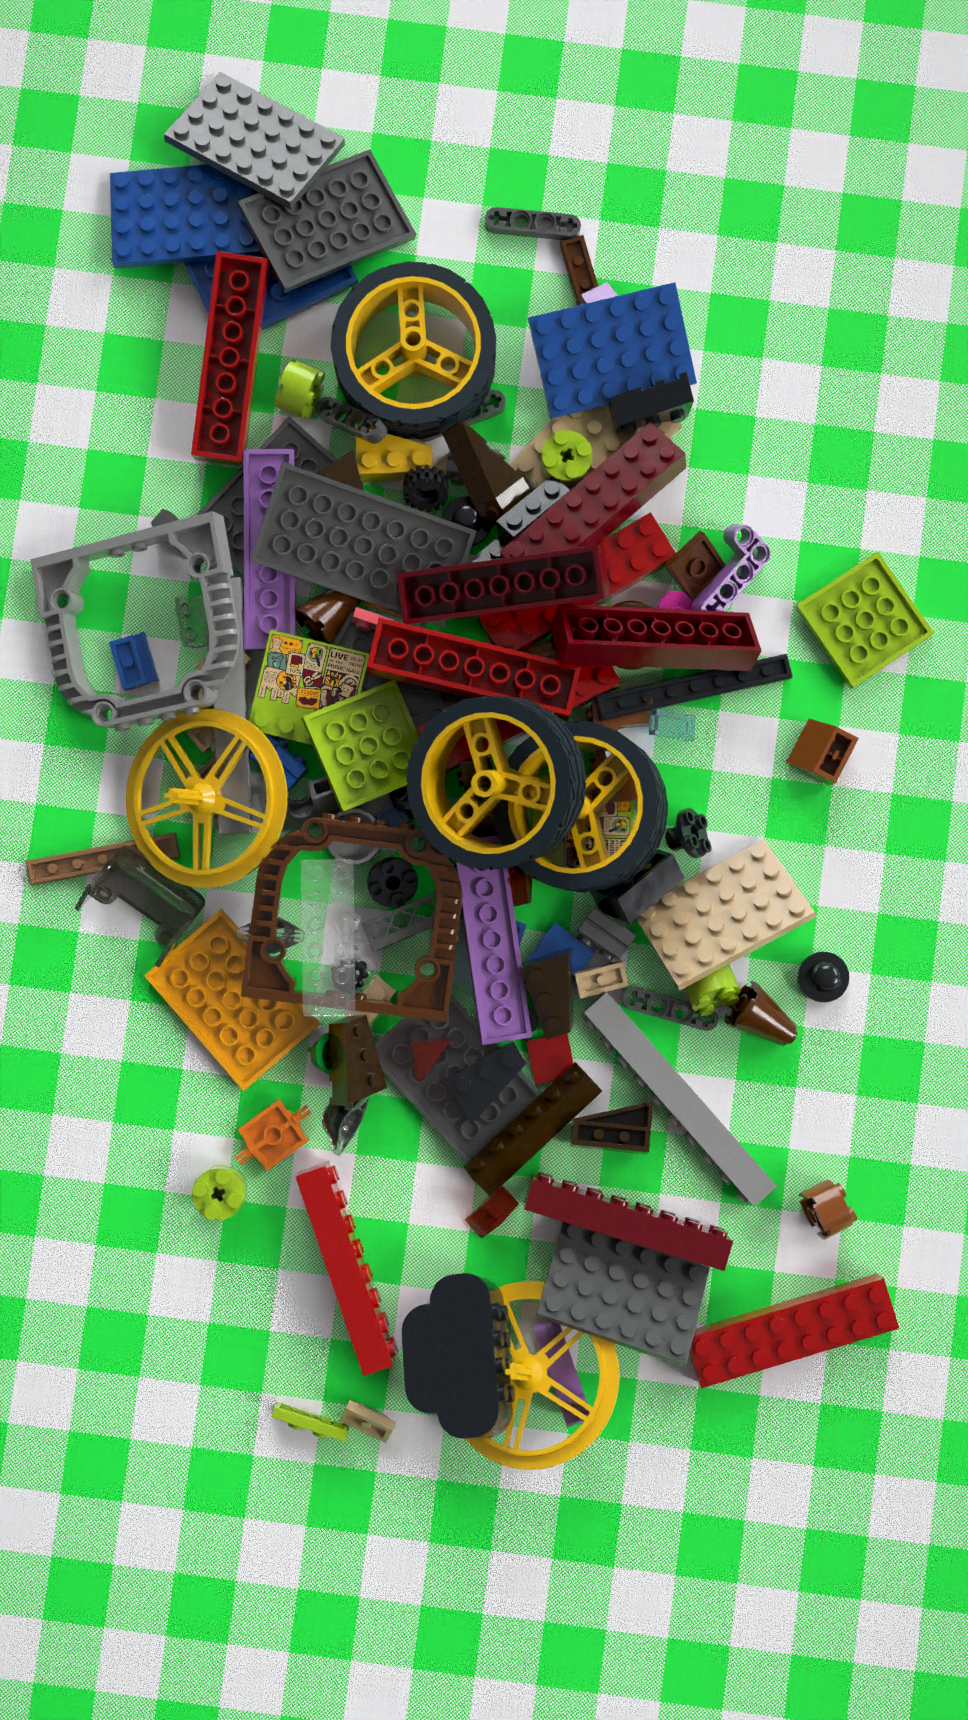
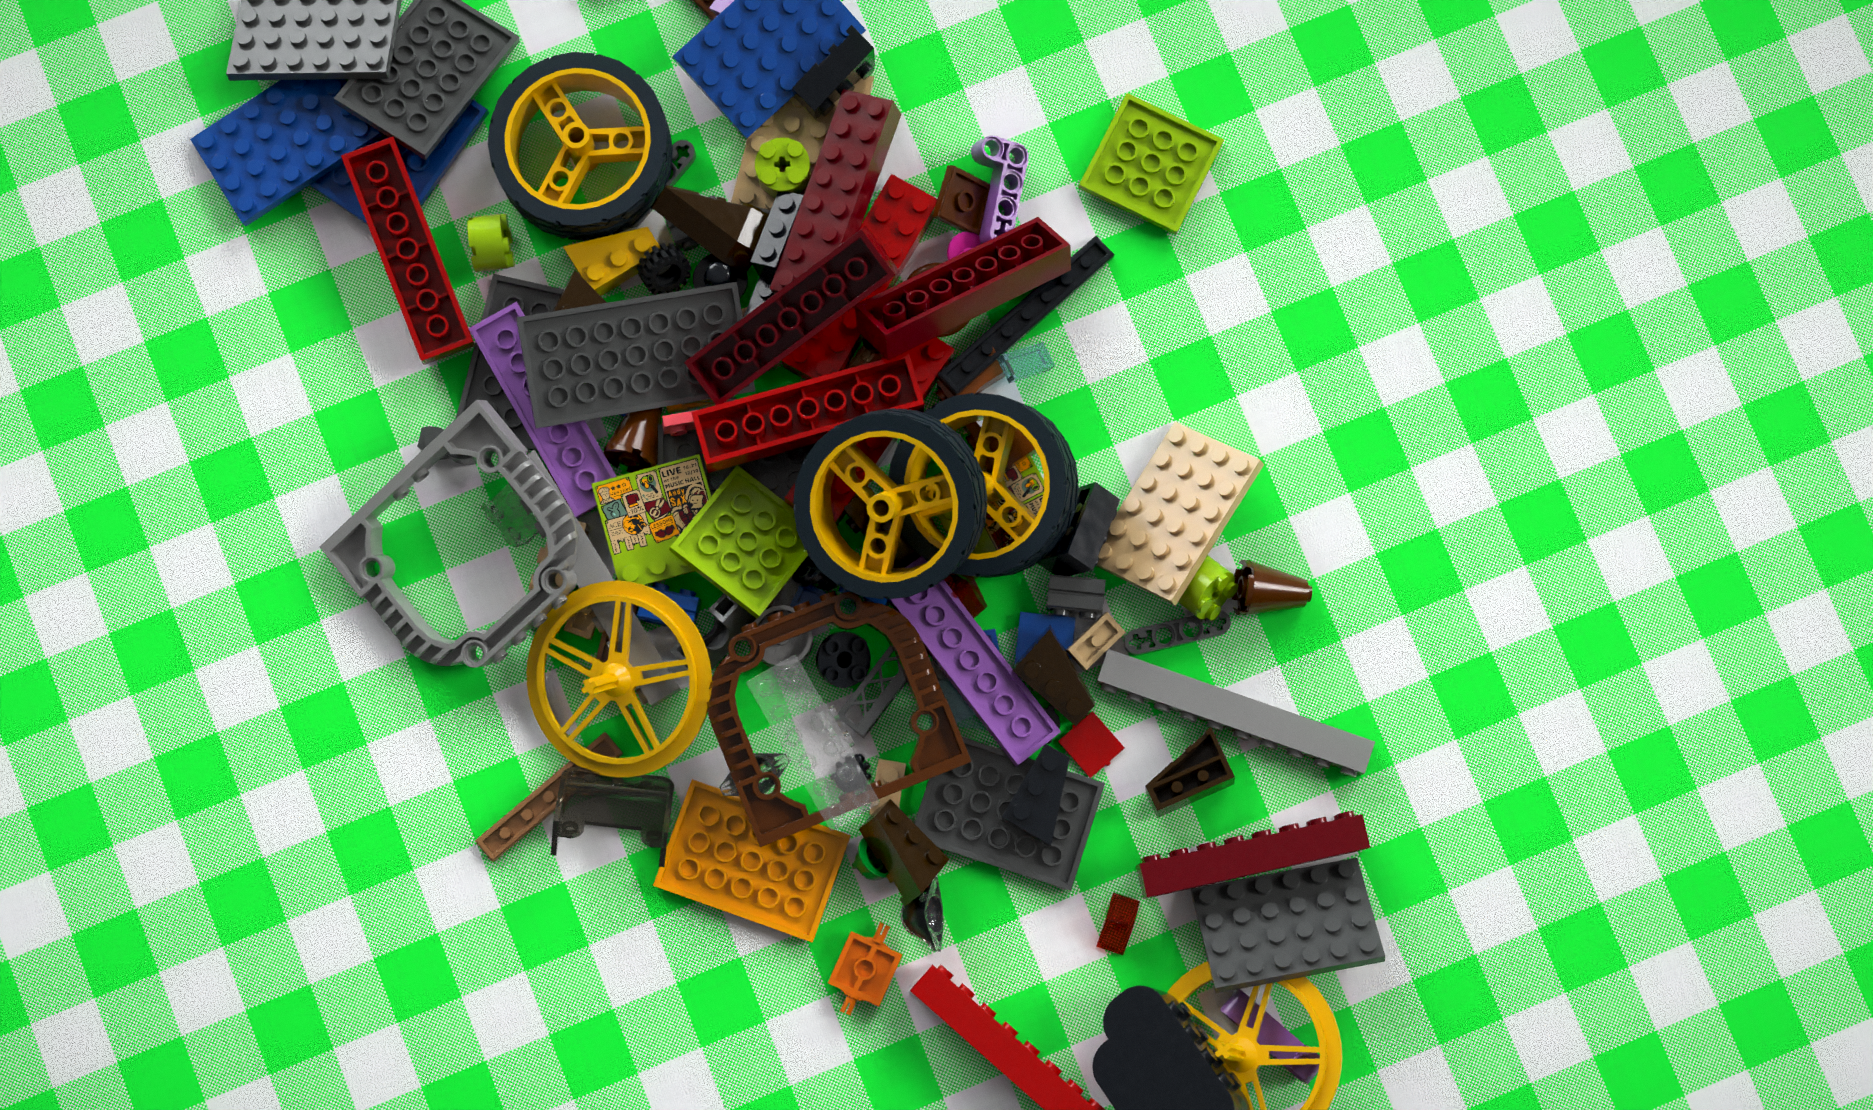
camera: 25 degrees left, 5 degrees down
(134, 661) = (473, 589): blue plate -> none
(214, 1206) = (828, 1055): lime brick -> none
(352, 417) = (556, 242): dark grey beam -> none
(426, 1054) = (969, 804): clear red slope -> none
(532, 1129) = (1111, 819): dark brown brick -> none
(689, 834) = (1100, 456): black plate -> none
(792, 1330) = (1468, 872): red brick -> none
(822, 751) = (1181, 308): dark orange slope -> none
(823, 977) = (1305, 520): black plate -> none
(827, 1209) = (1435, 736): dark orange brick -> none

